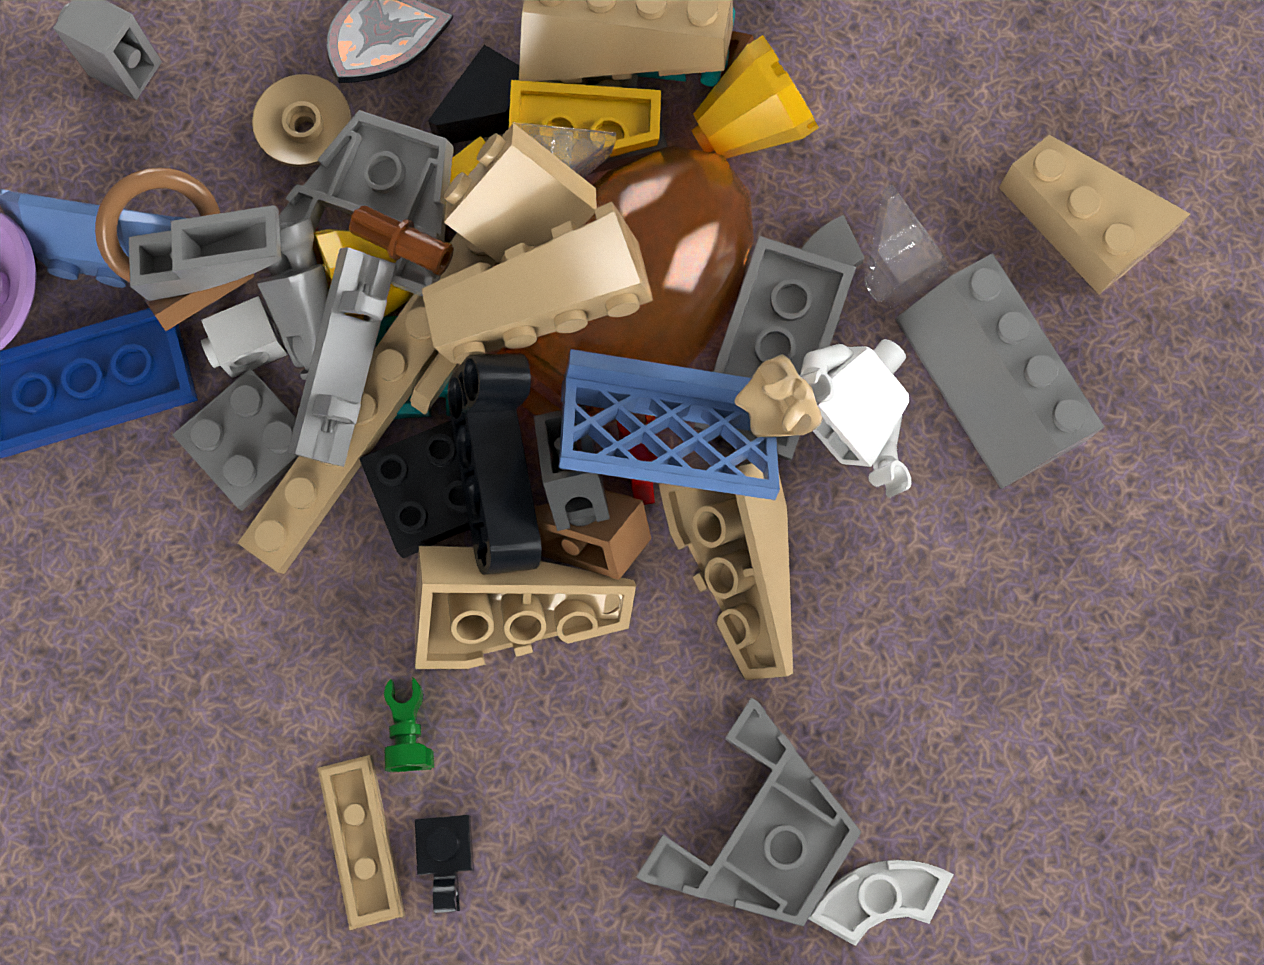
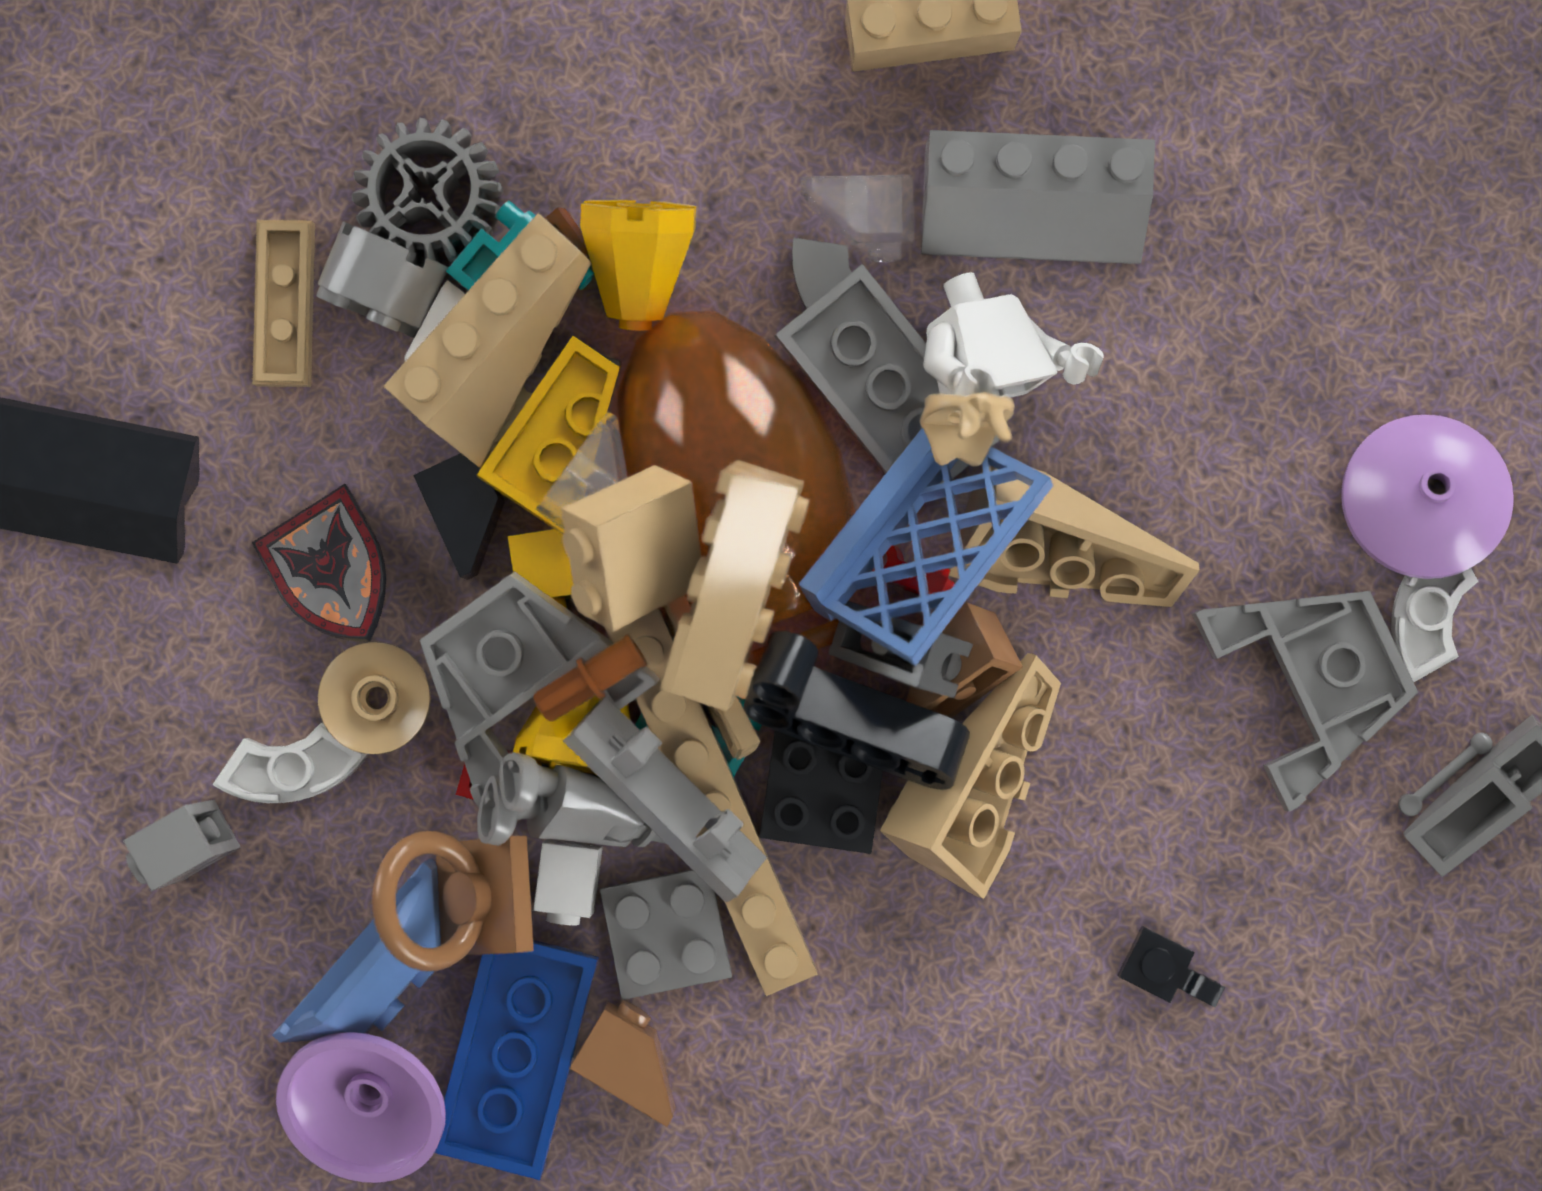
camera: 60 degrees left, 10 degrees up
(124, 466) = (627, 1061): none -> medium nougat slope
(204, 252) = (494, 870): light grey slope -> none
(211, 98) = (288, 771): none -> white tile
(361, 842) = (1107, 1036): tan tile -> none
(406, 753) = (1055, 951): green piece -> none
(938, 841) = (1405, 522): none -> lavender dish

